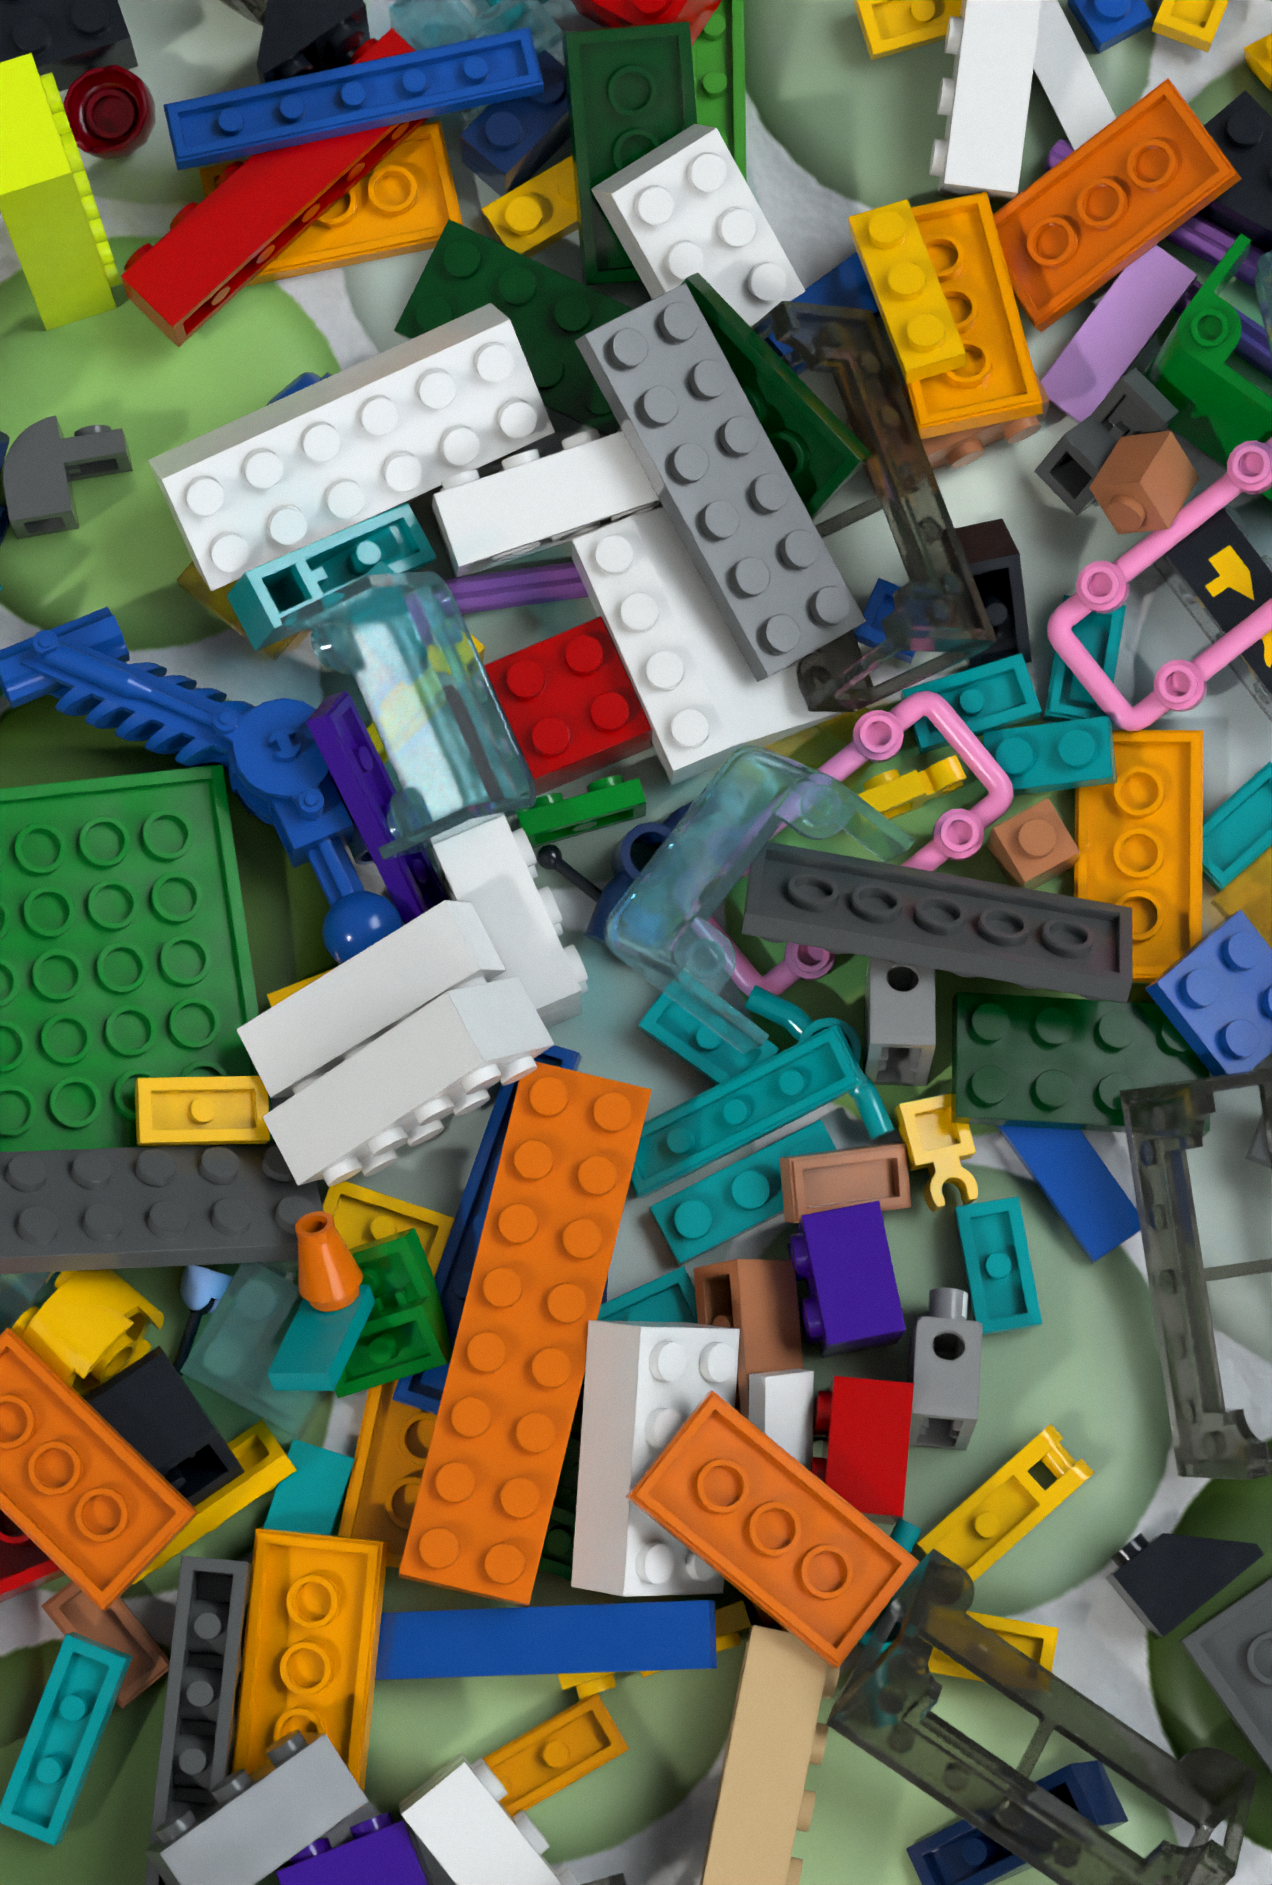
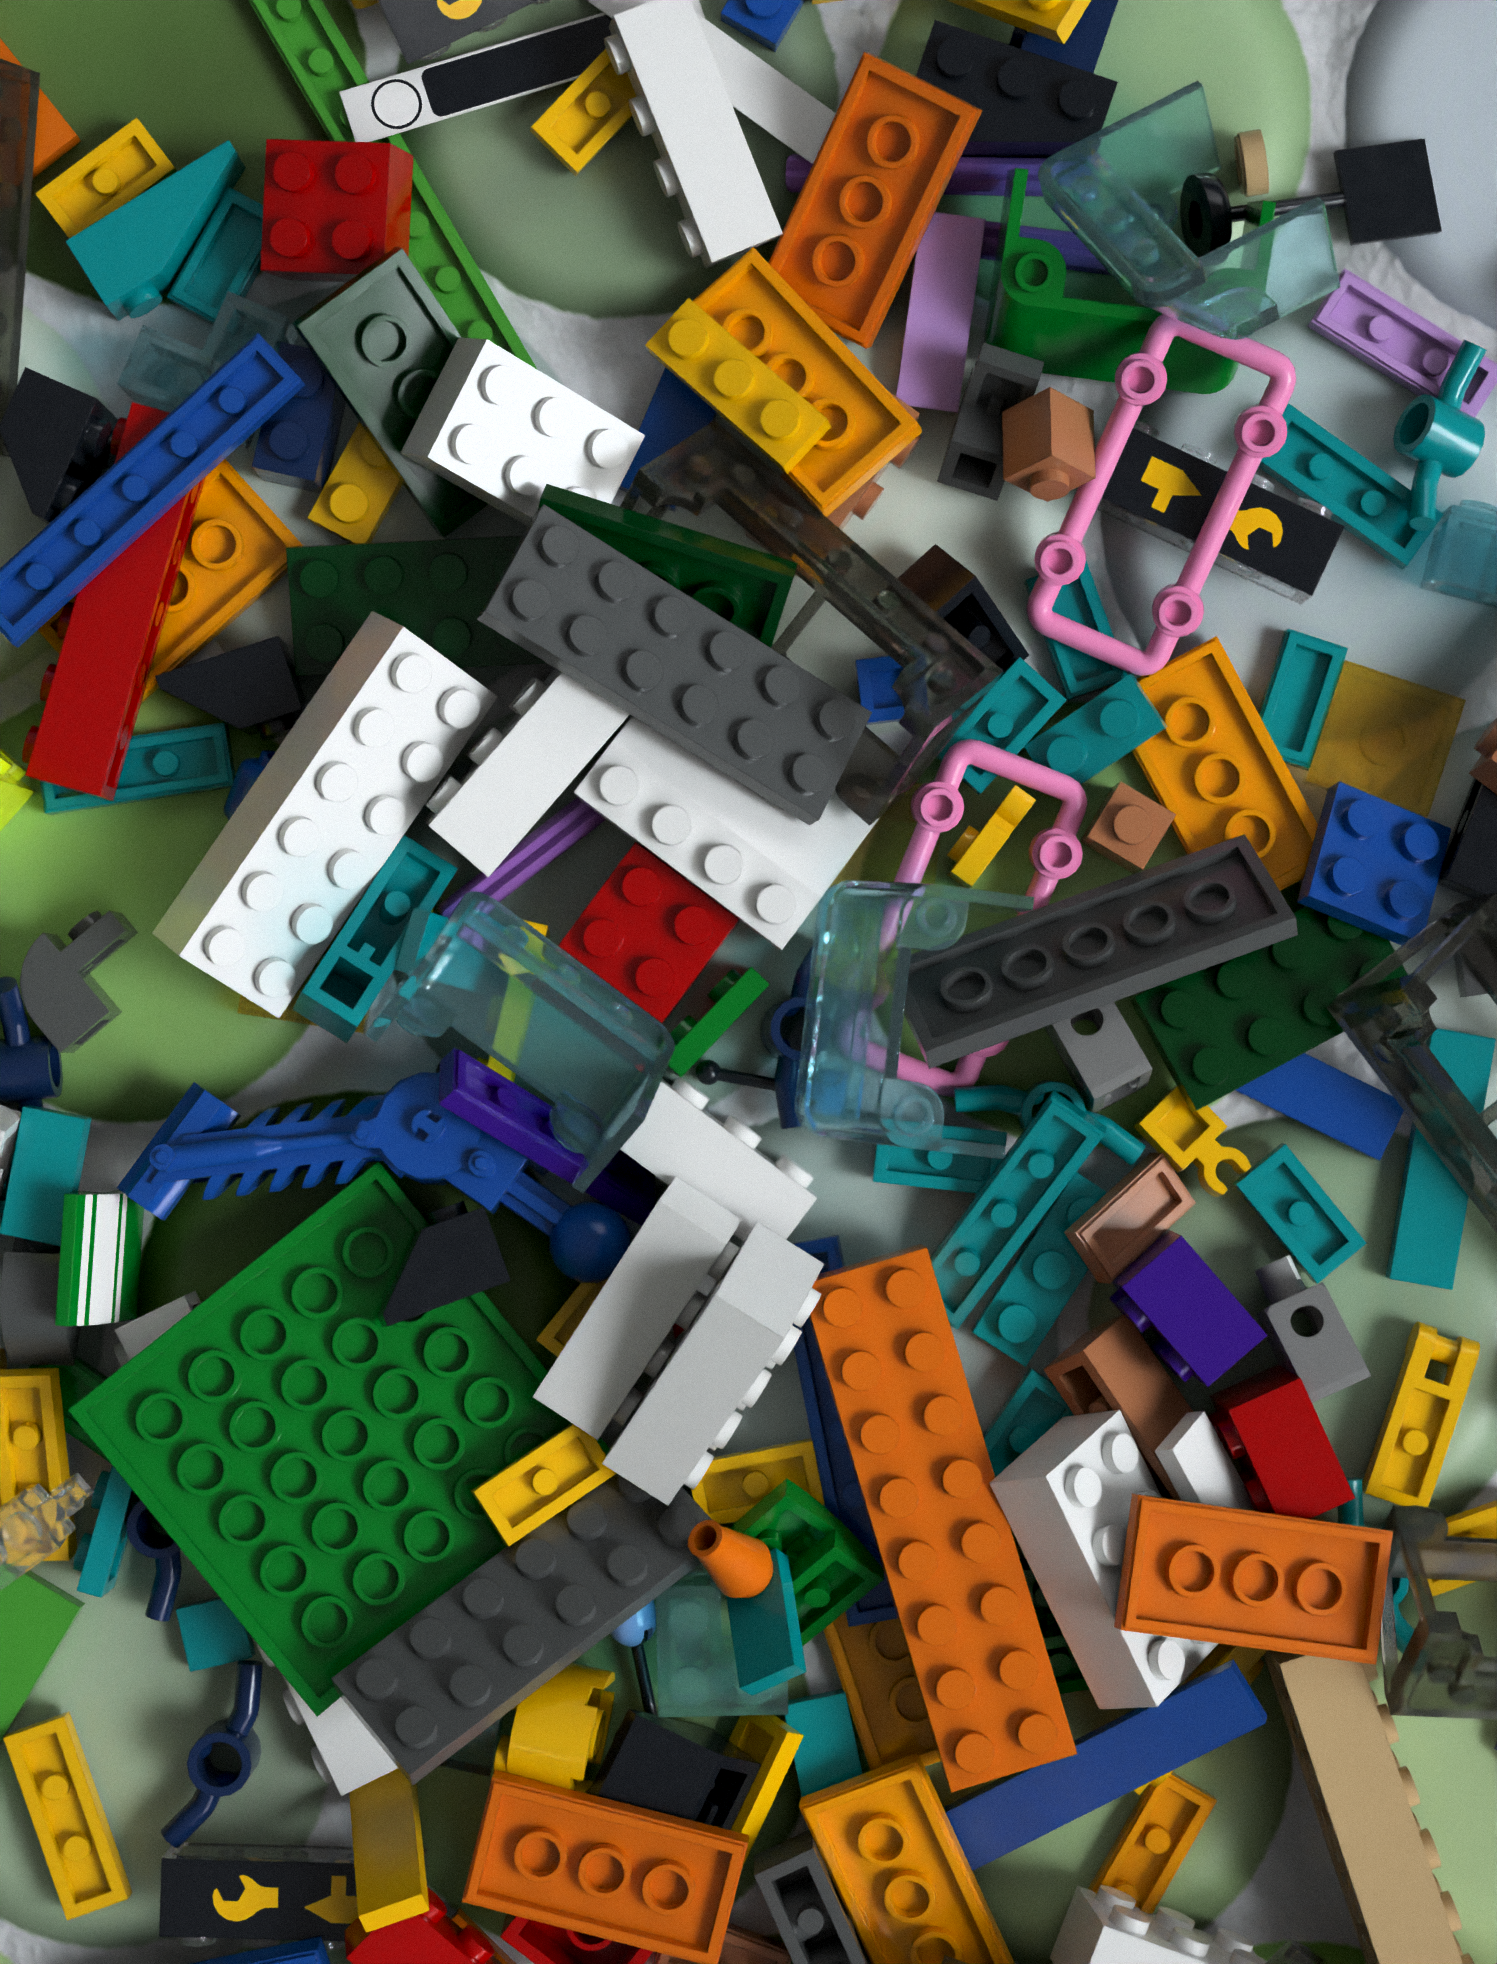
camera: 30 degrees left, 10 degrees up
(227, 878) = (445, 1264): none -> black slope
(231, 344) = (159, 768): none -> teal tile
(341, 312) = (244, 687): none -> black slope
(1124, 1320) = (1430, 1198): none -> teal tile

